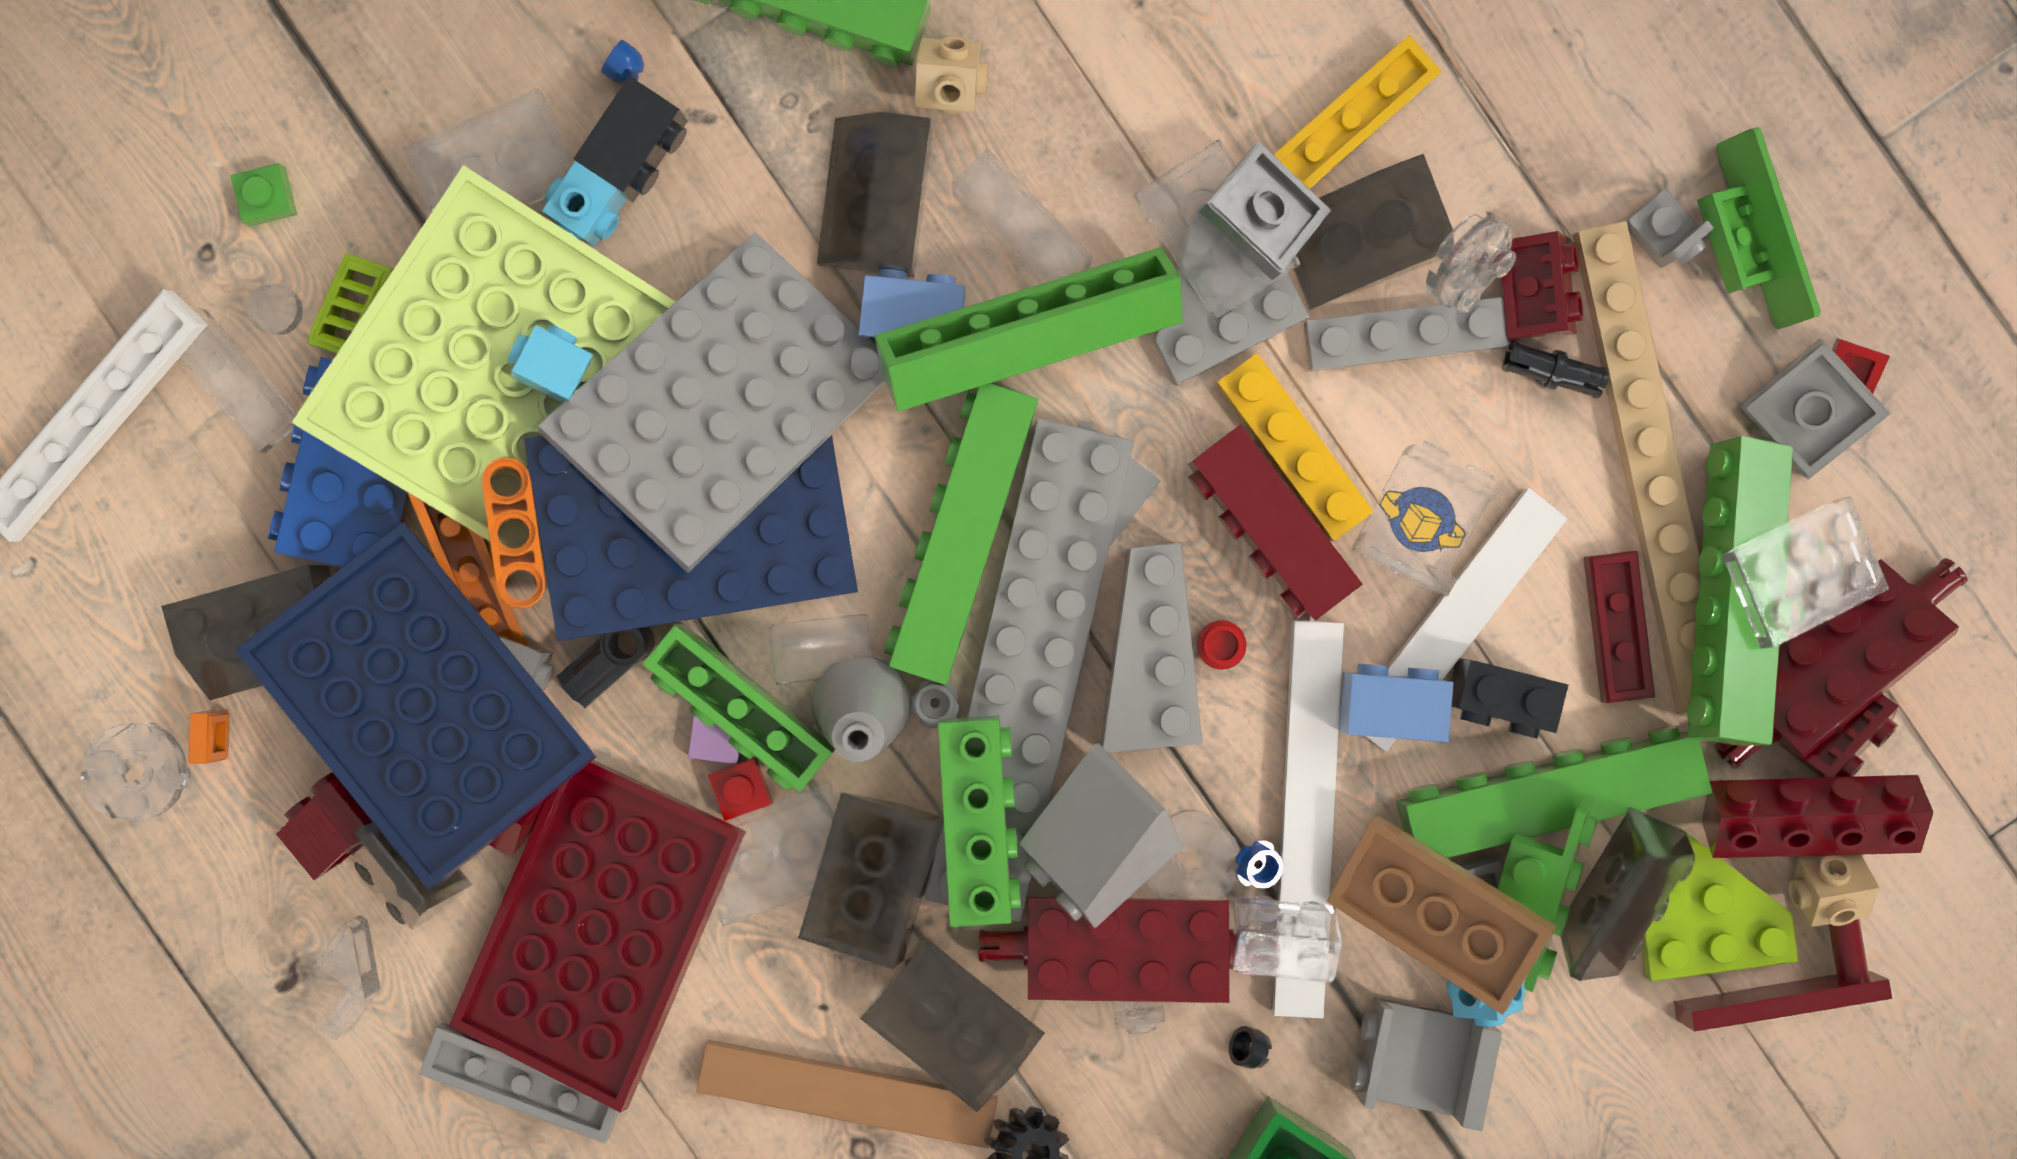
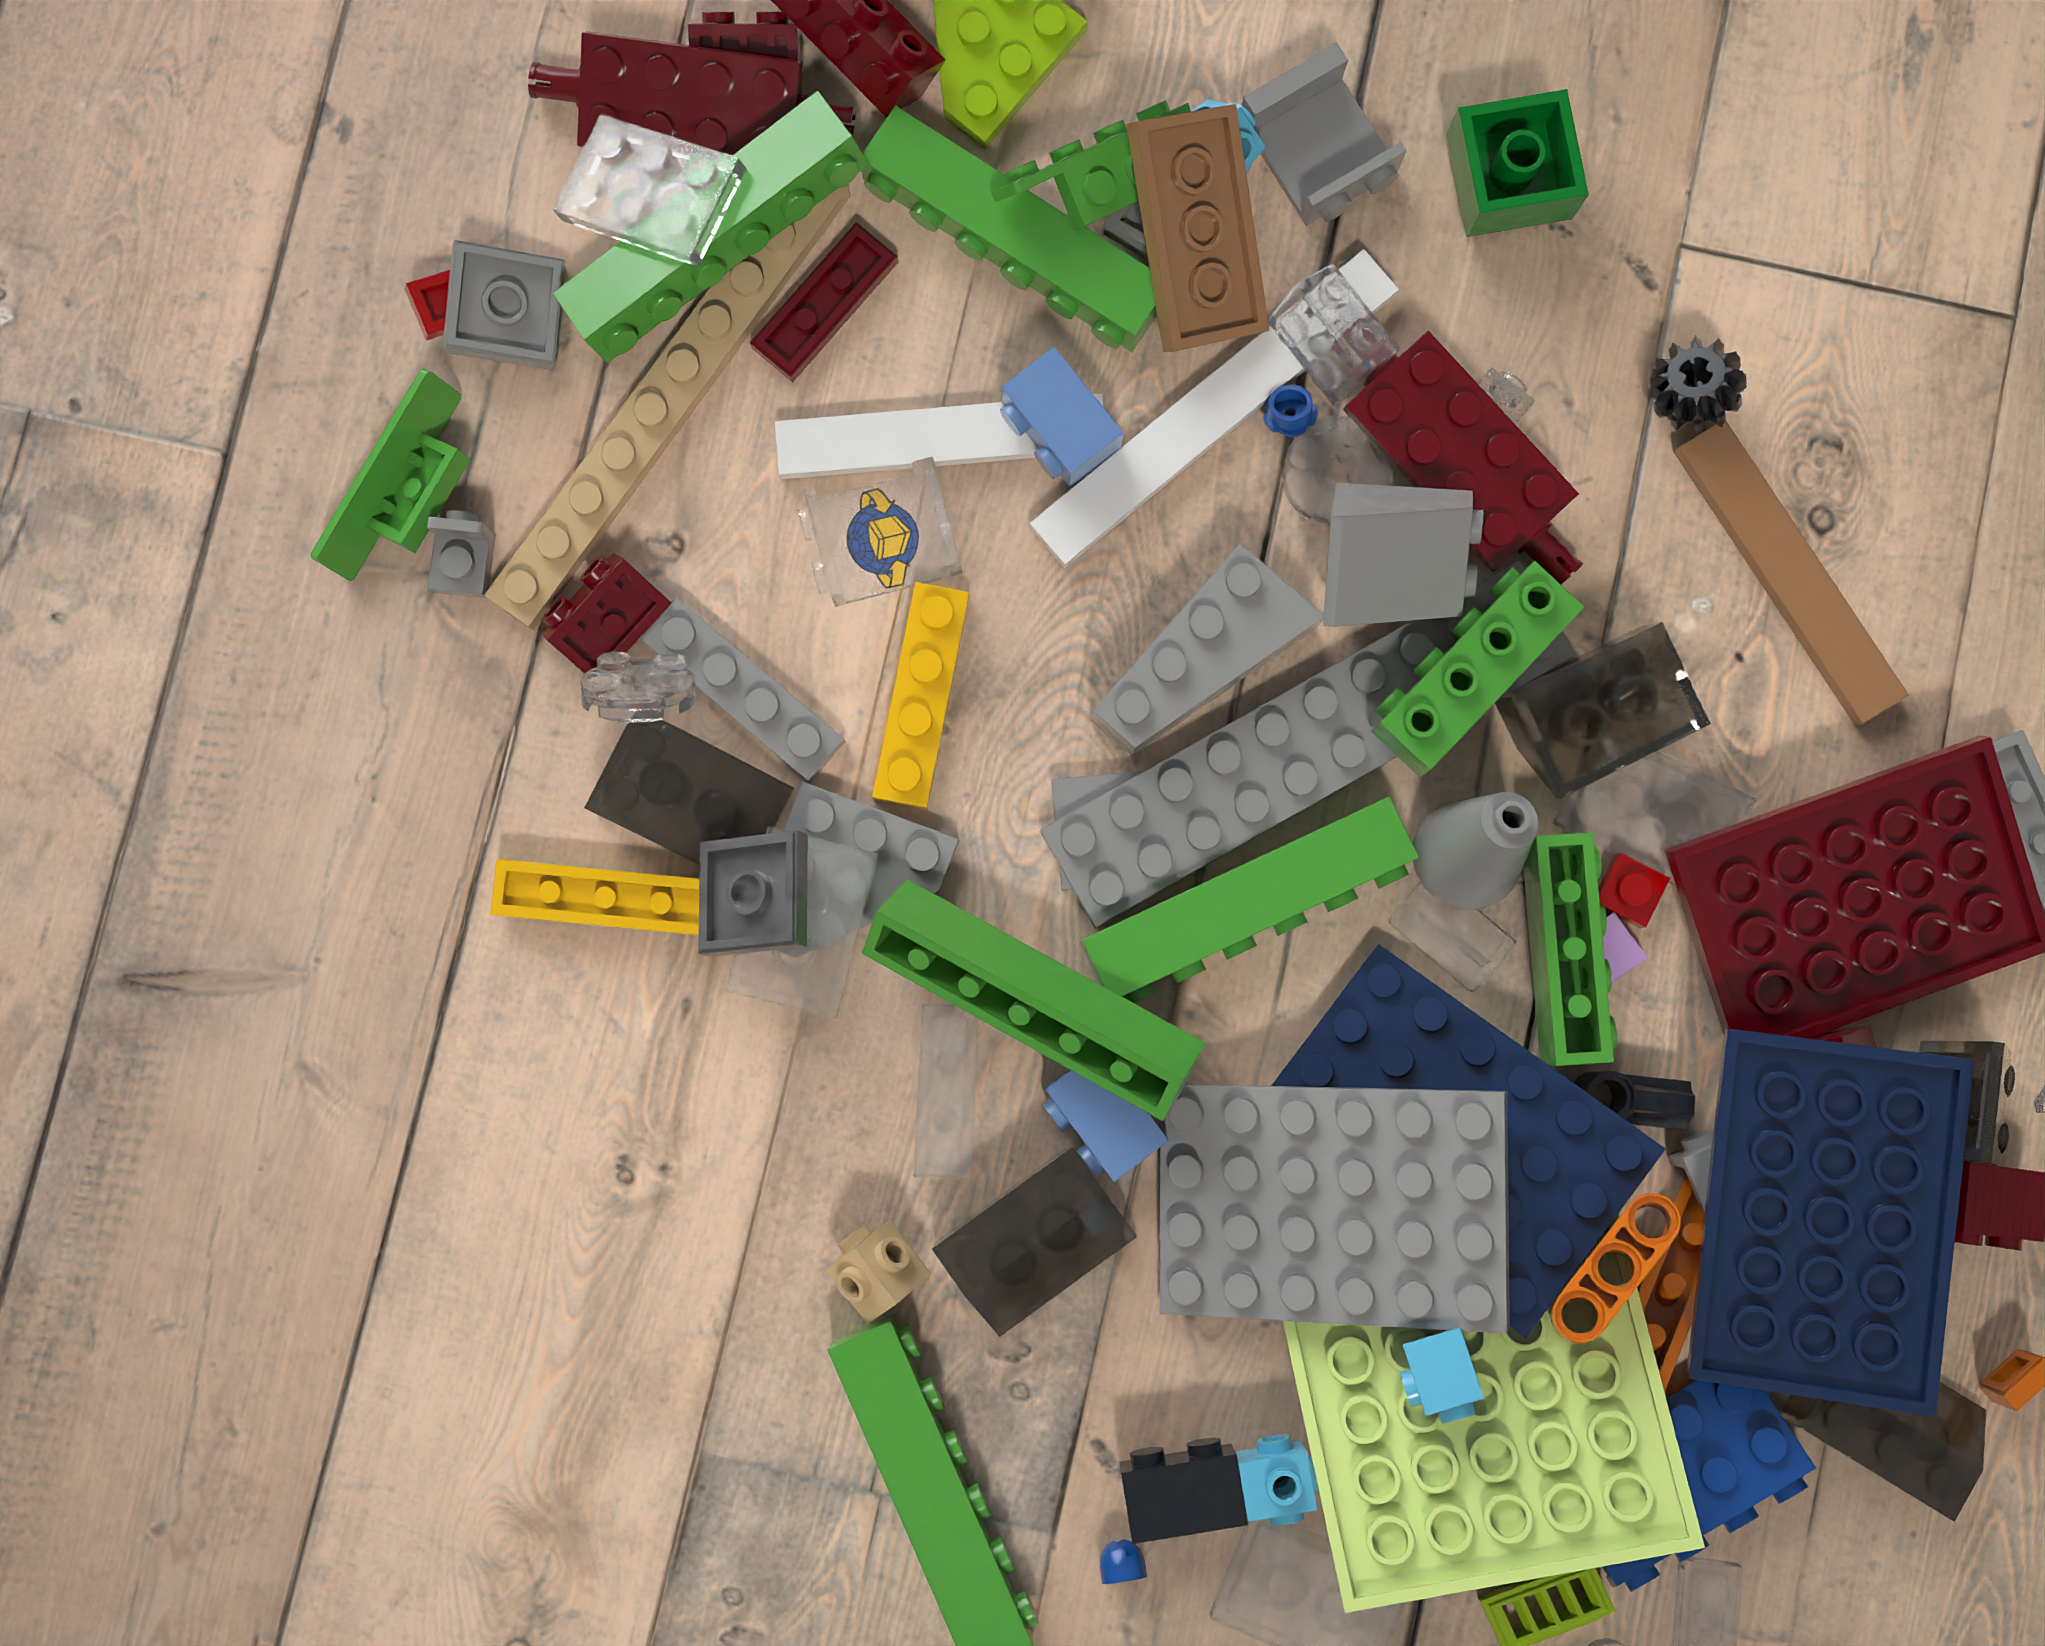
camera: 130 degrees left, 5 degrees down
(926, 692) = (1421, 788): light grey plate -> none
(951, 1025) = (1656, 537): clear smoke slope -> none
(1221, 644) = (1139, 605): red plate -> none
(1240, 1044) = (1449, 295): black hinge -> none
(1274, 525) = (1003, 652): dark red brick -> none
(1508, 695) = (967, 338): black brick -> none
(1555, 369) = (660, 542): black pin -> none
(1624, 895) = (1044, 99): clear smoke slope -> none

